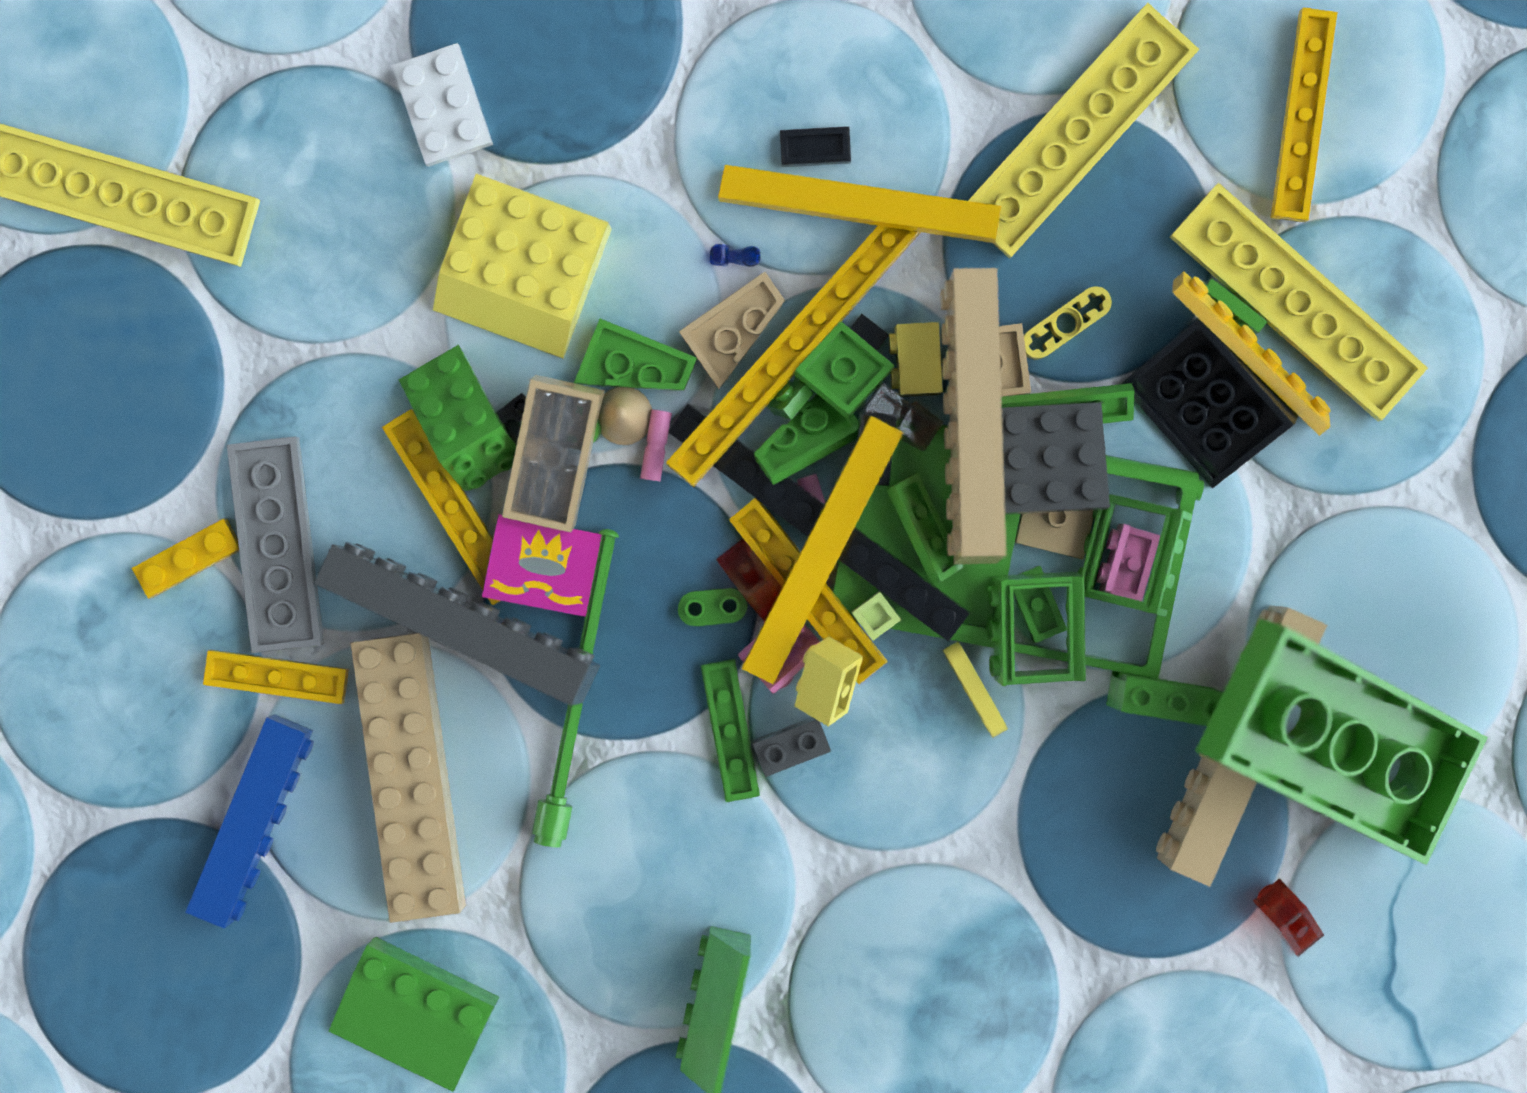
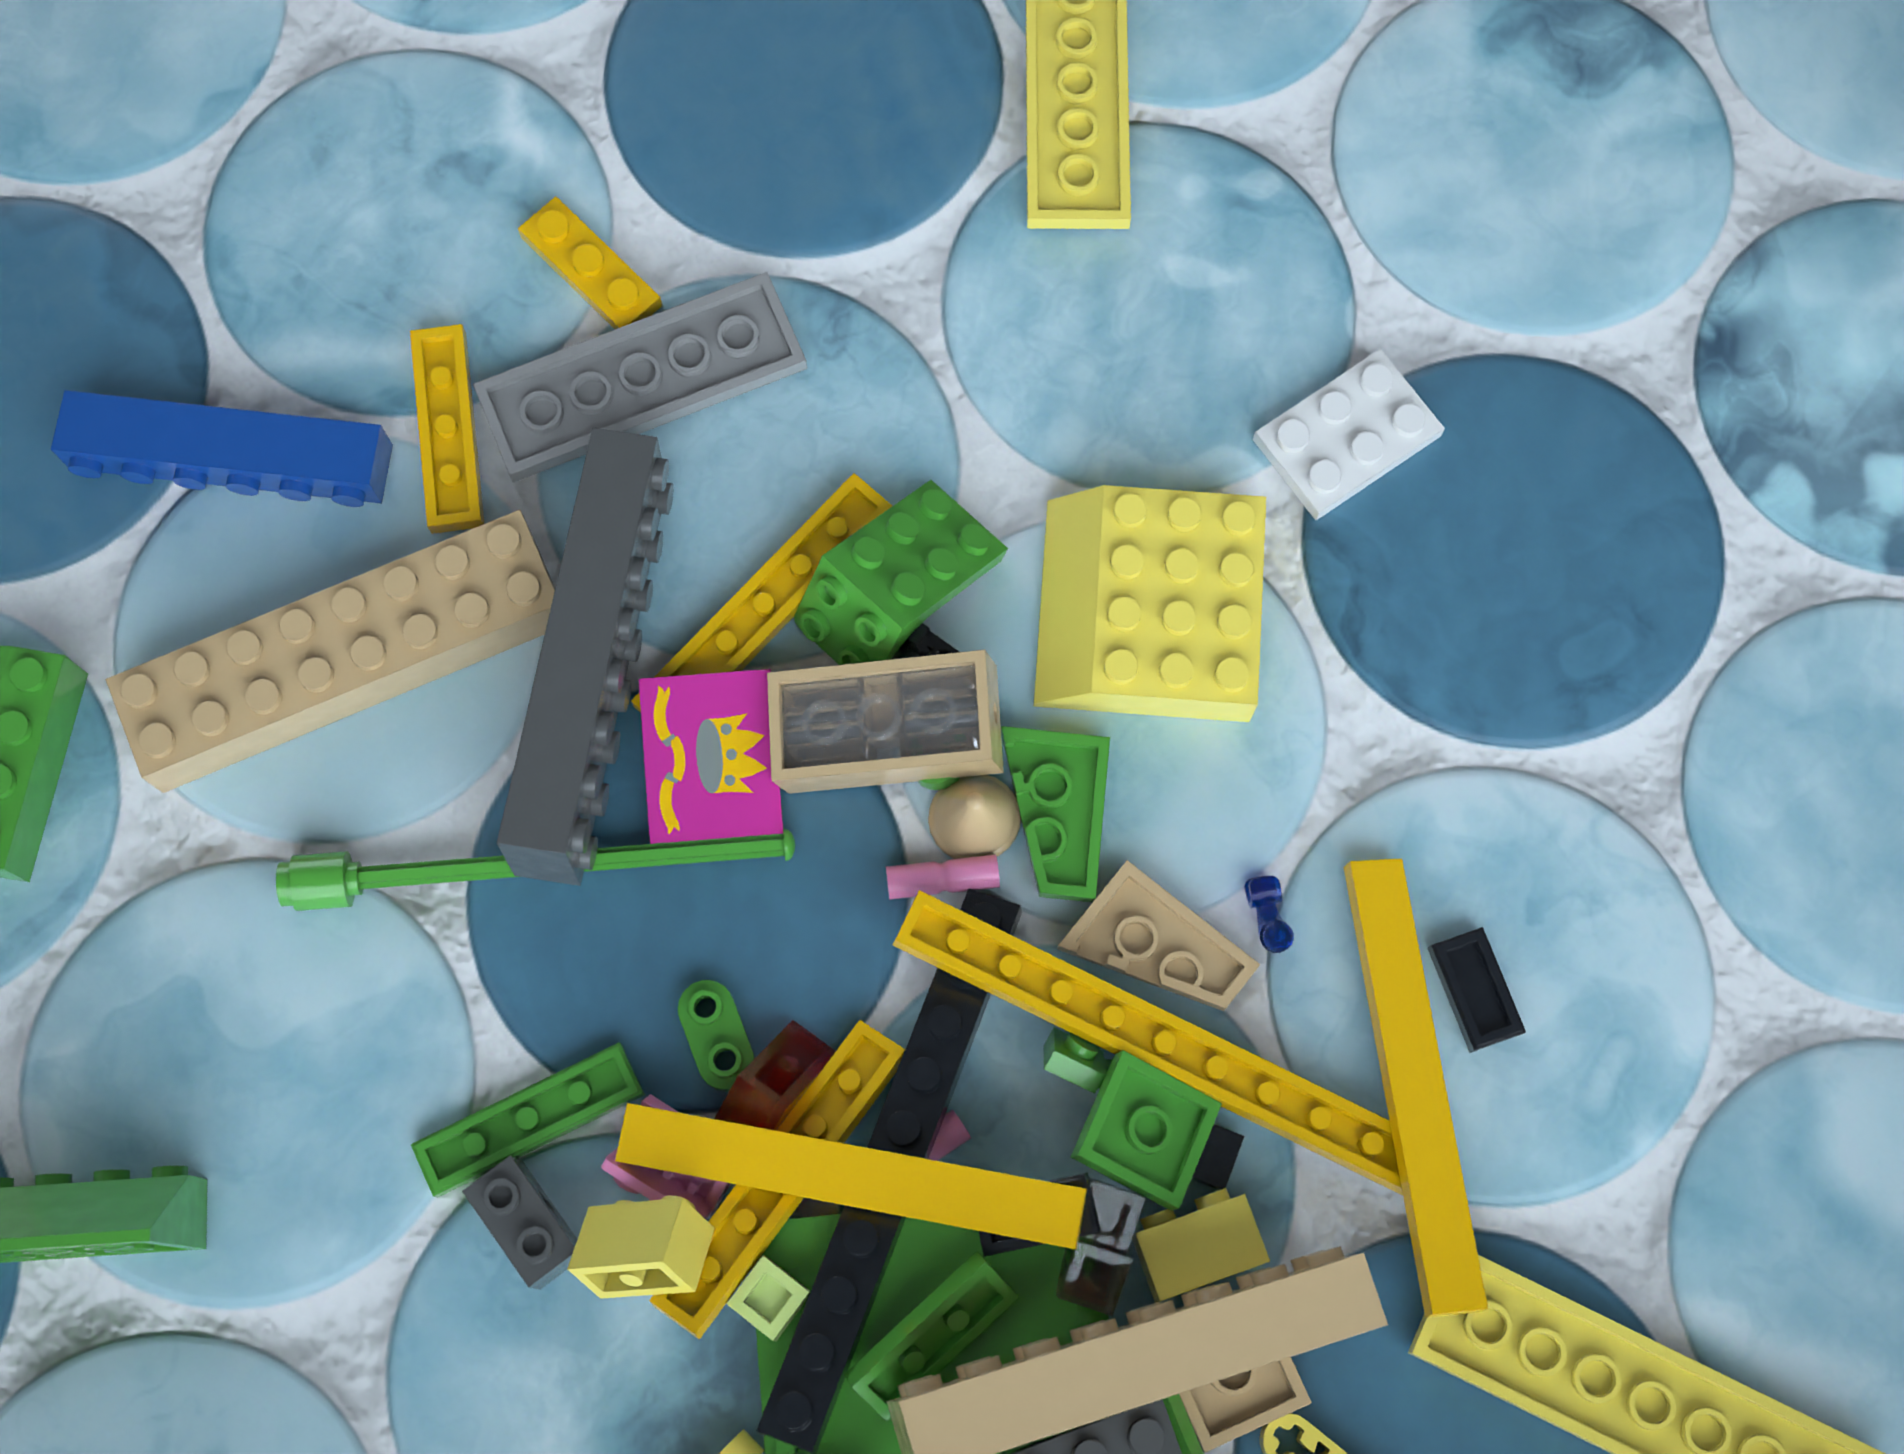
camera: 75 degrees right, 15 degrees down
(805, 439) = (1017, 1100): bright green wing -> none

